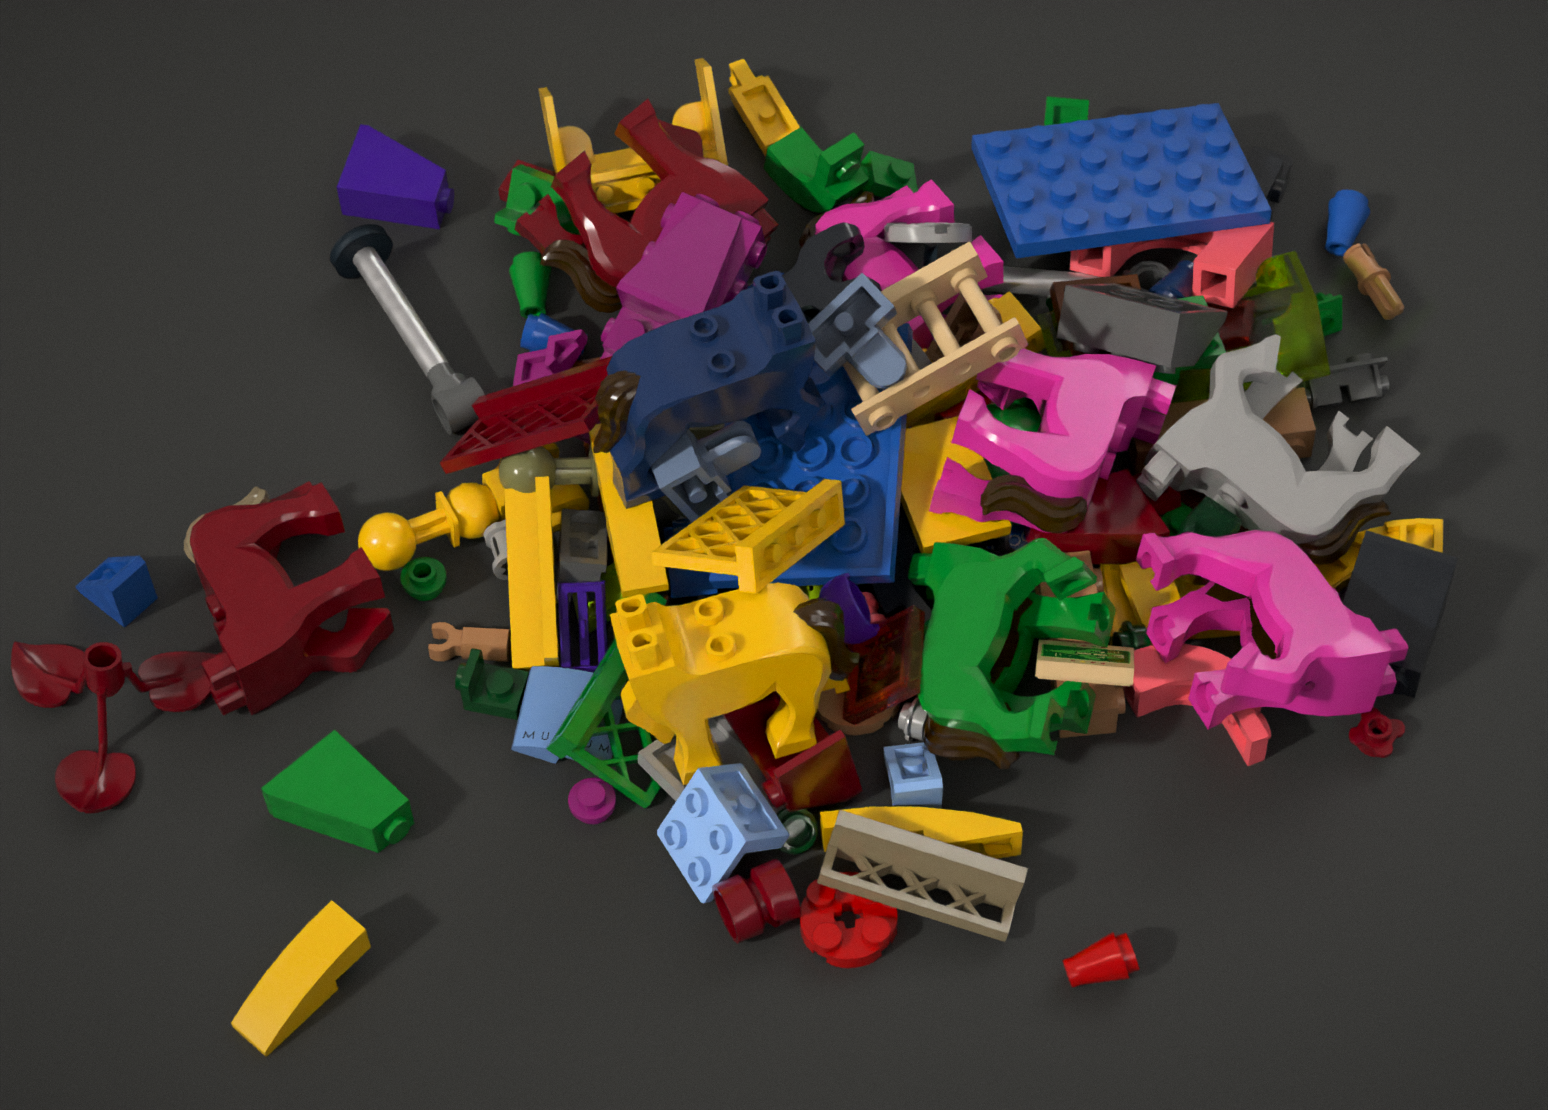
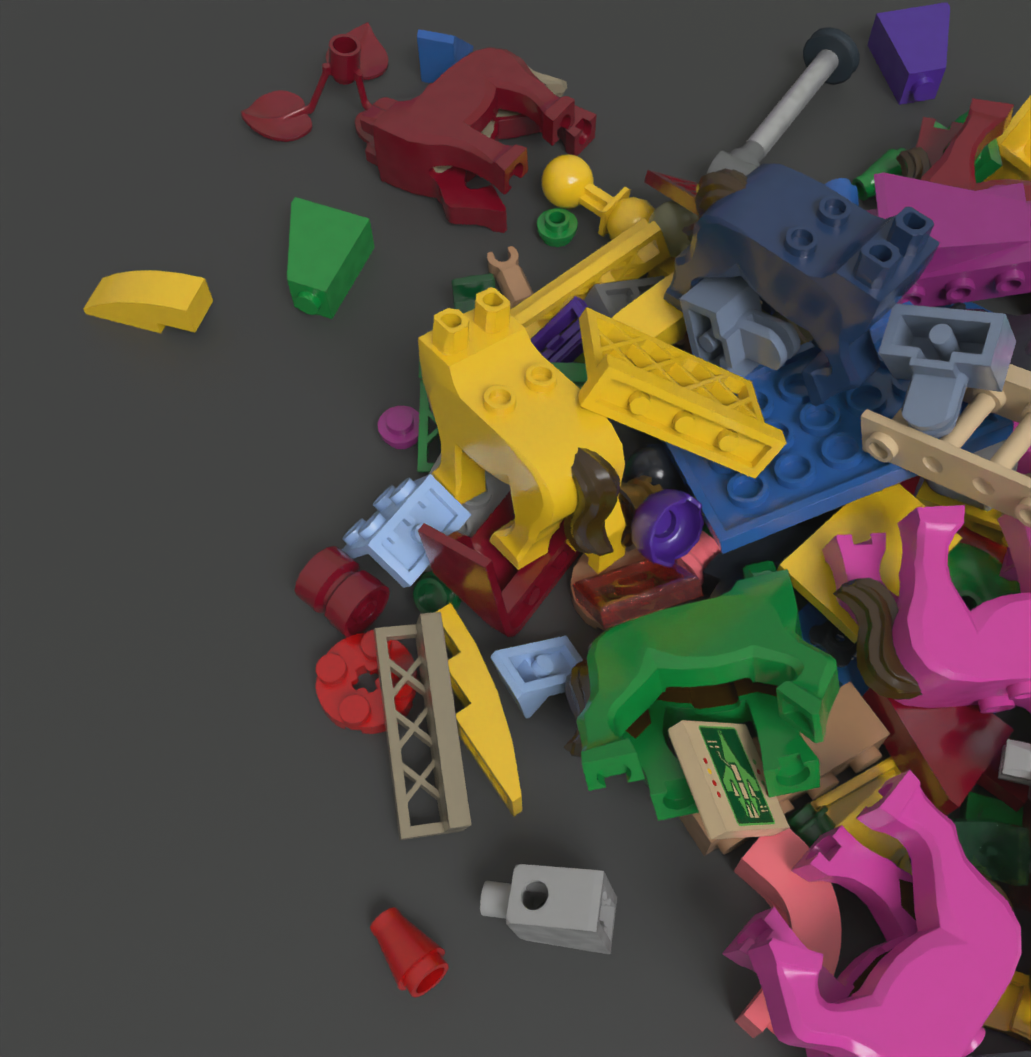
camera: 65 degrees right, 5 degrees up
(1118, 835) = (576, 910): none -> light grey torso

